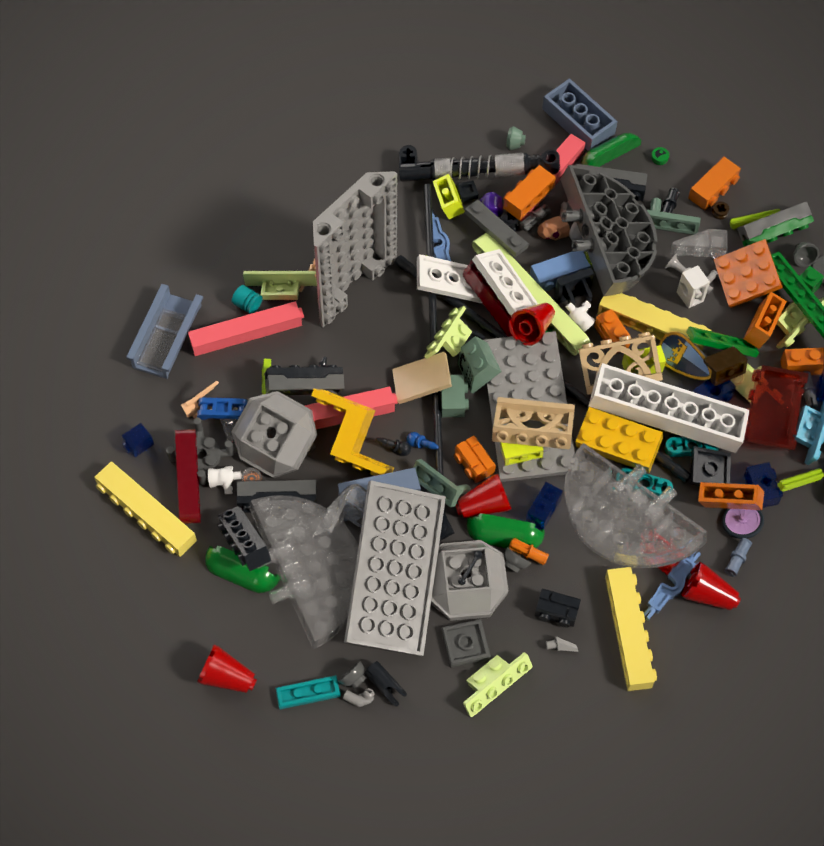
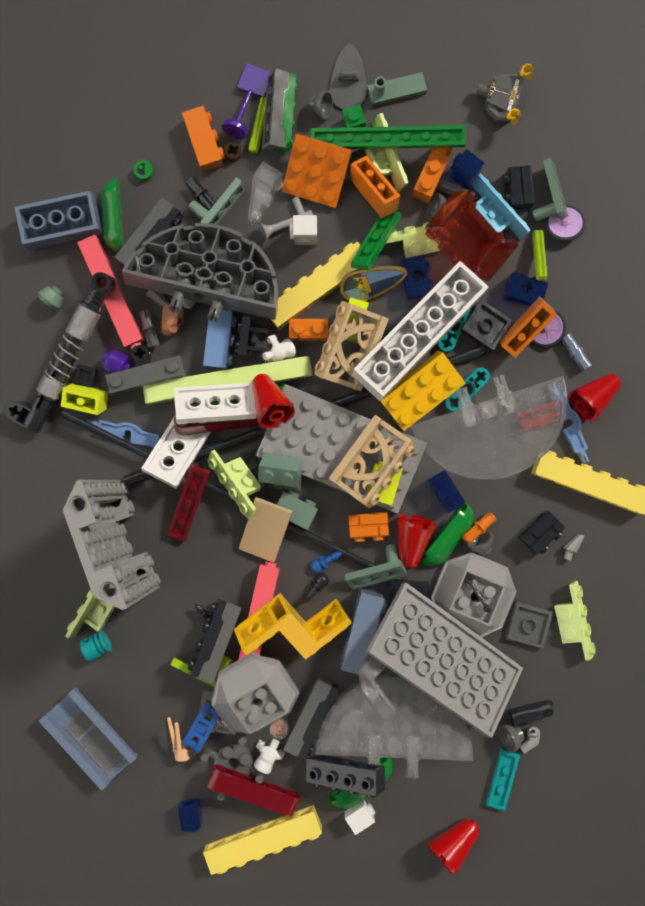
camera: 60 degrees left, 25 degrees up
(208, 579) = (360, 816): none -> white brick
(245, 328) = (125, 663): coral brick -> none
(409, 309) = (188, 502): none -> dark red plate
(529, 192) = (125, 323): orange brick -> none
(726, 365) = (403, 252): dark brown panel -> none
(784, 196) = (253, 82): none -> dark purple piece

